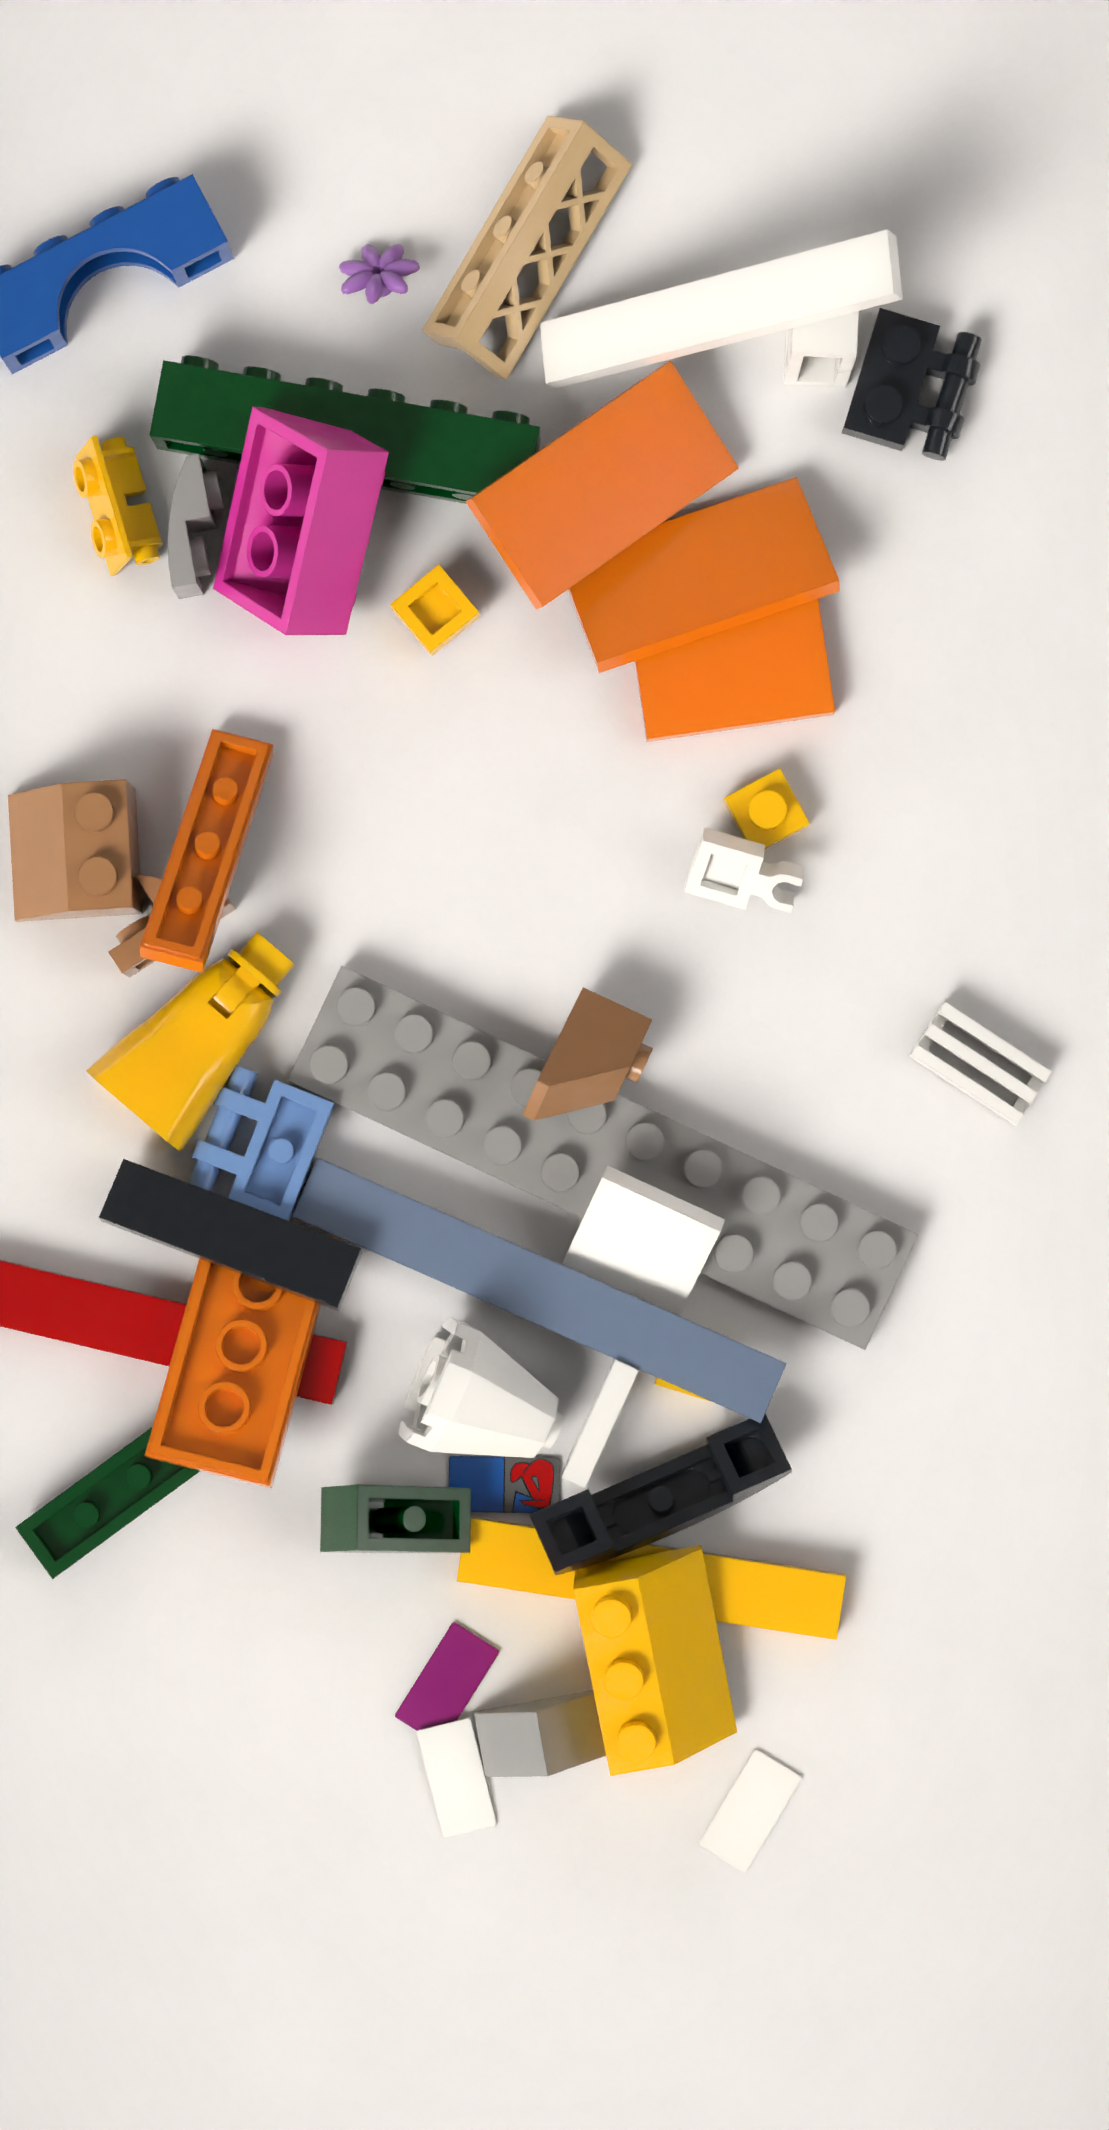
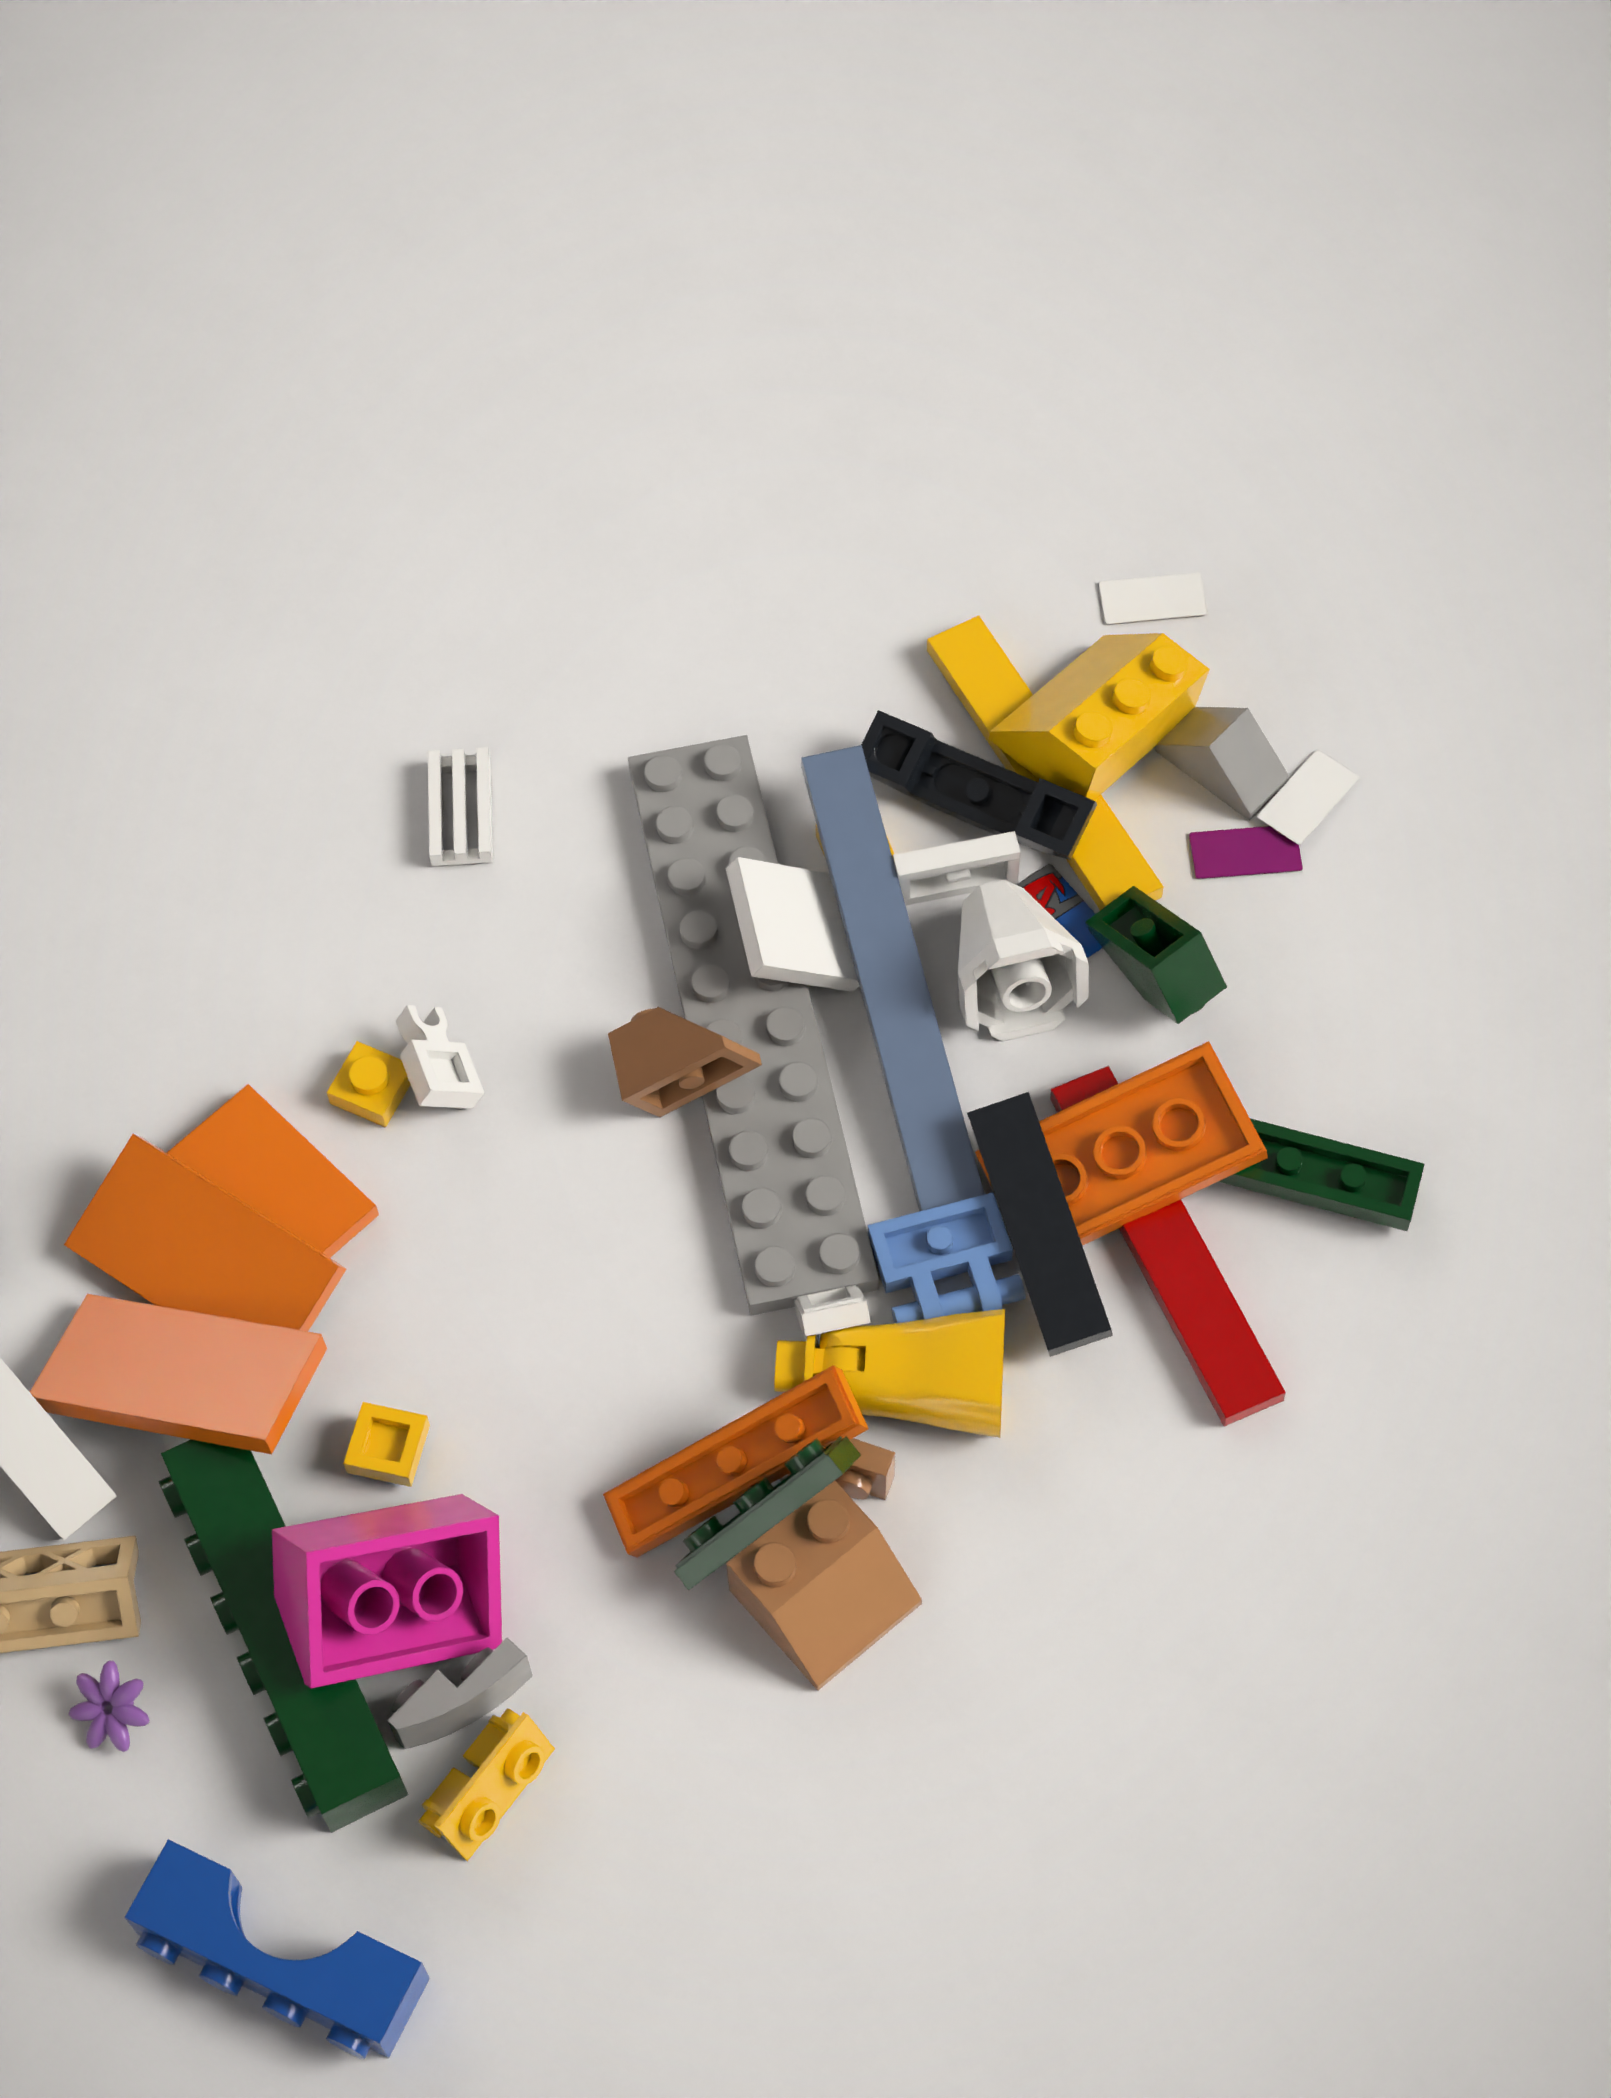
camera: 130 degrees left, 25 degrees down
(140, 838) = (763, 1508): none -> tile
(284, 1021) = (831, 1310): none -> white tile

